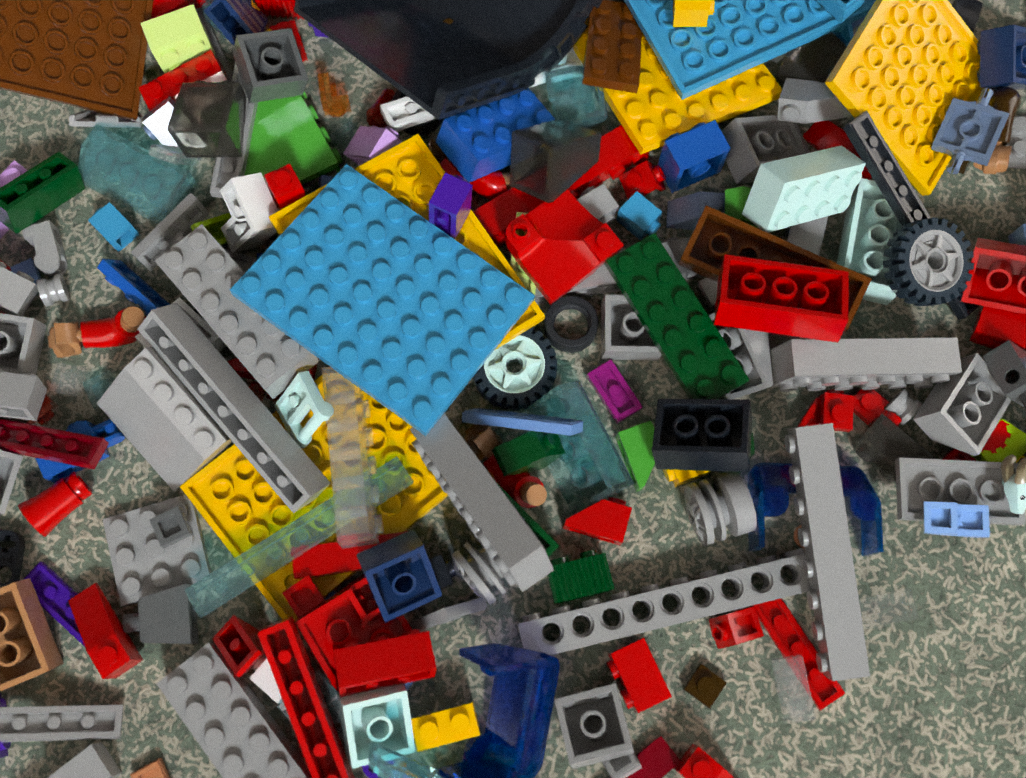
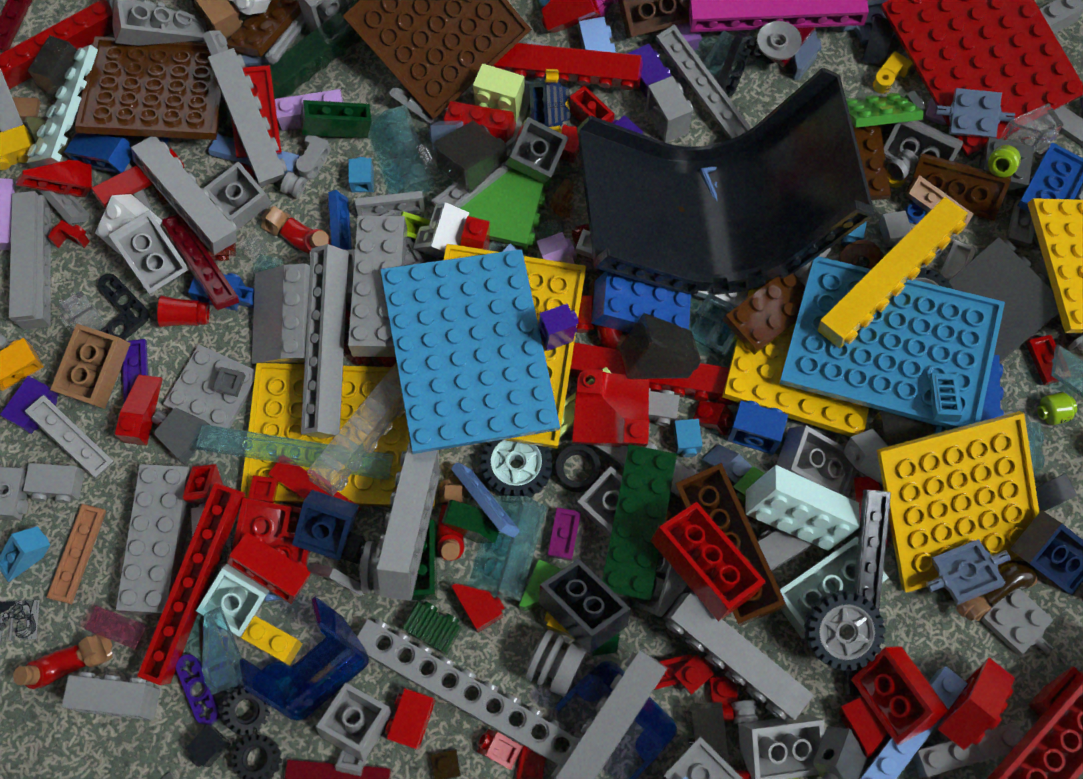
camera: 45 degrees right, 5 degrees down
(296, 403) = (365, 371): light aqua plate -> none

